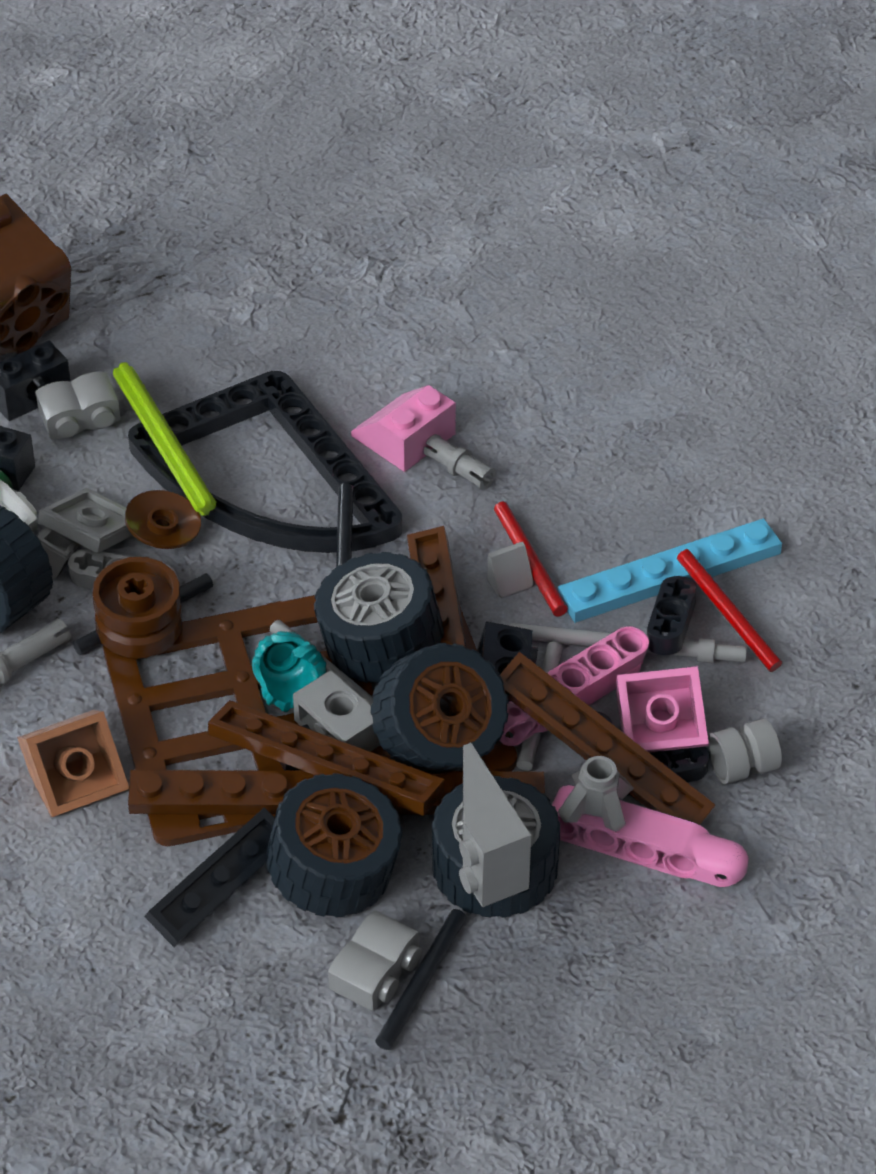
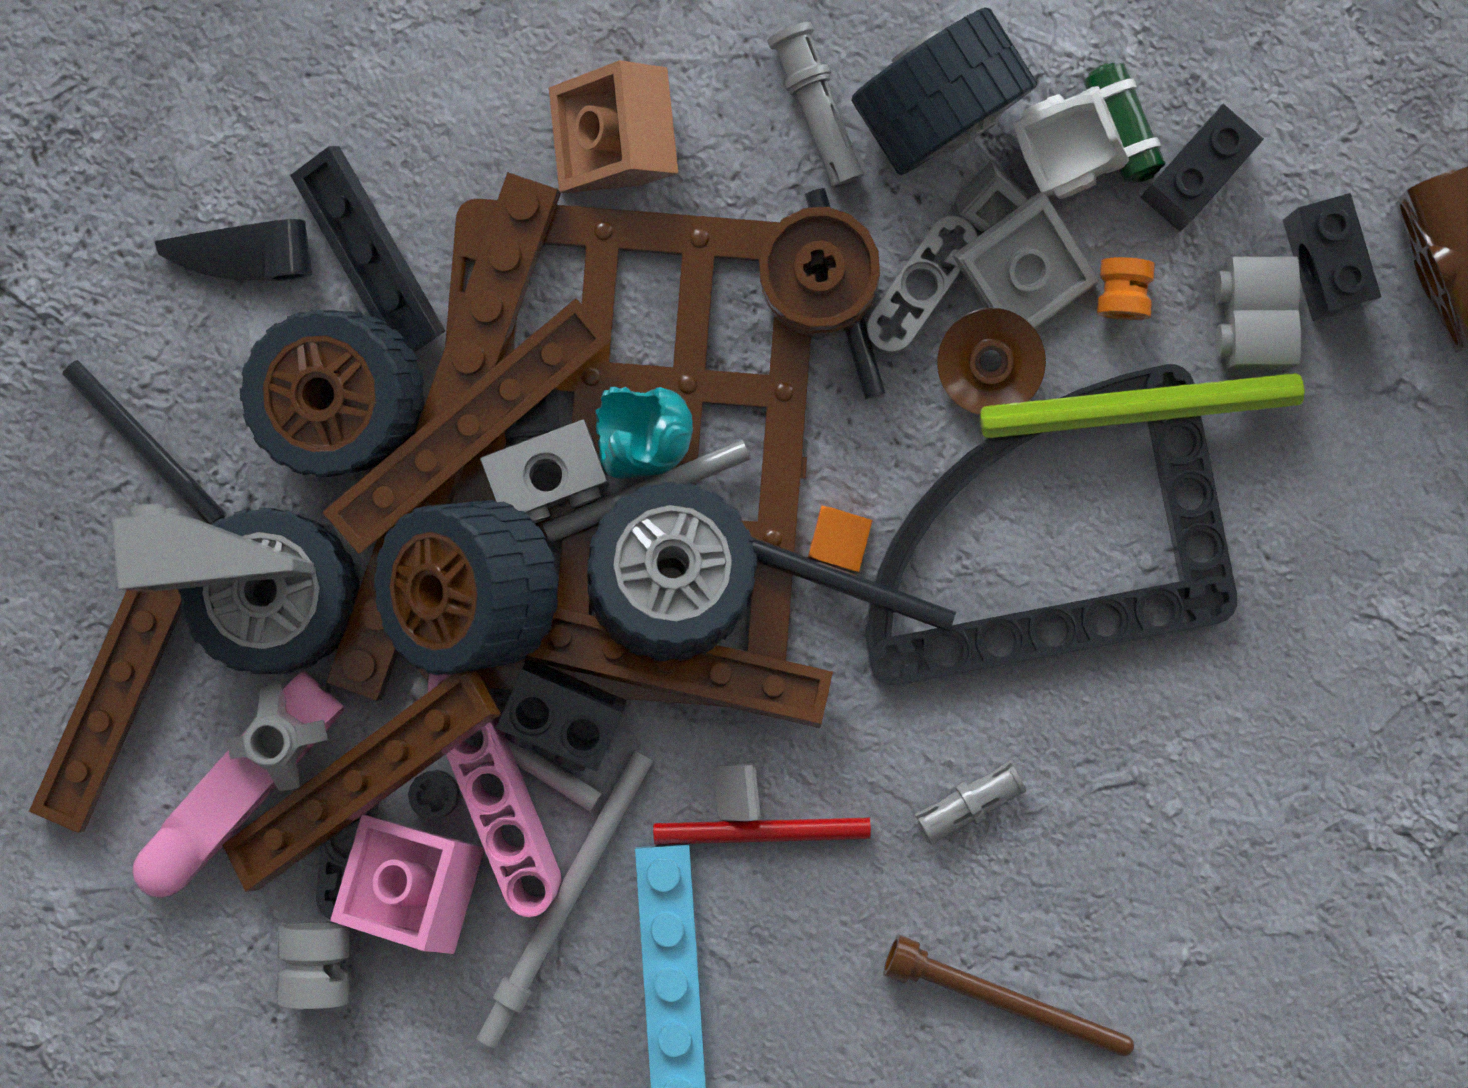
camera: 110 degrees right, 40 degrees up
(87, 470) = (1126, 288): none -> orange wheel
(247, 952) = (246, 252): none -> black piece
(312, 571) = (839, 538): none -> orange slope
(374, 961) = (174, 393): light grey brick -> none
(406, 424) = (1066, 752): bright pink slope -> none
(576, 462) = (910, 962): none -> reddish brown piece
(597, 931) = (107, 708): none -> reddish brown plate
(673, 625) = (616, 980): black beam -> none
(729, 610) = (561, 1051): red bar -> none

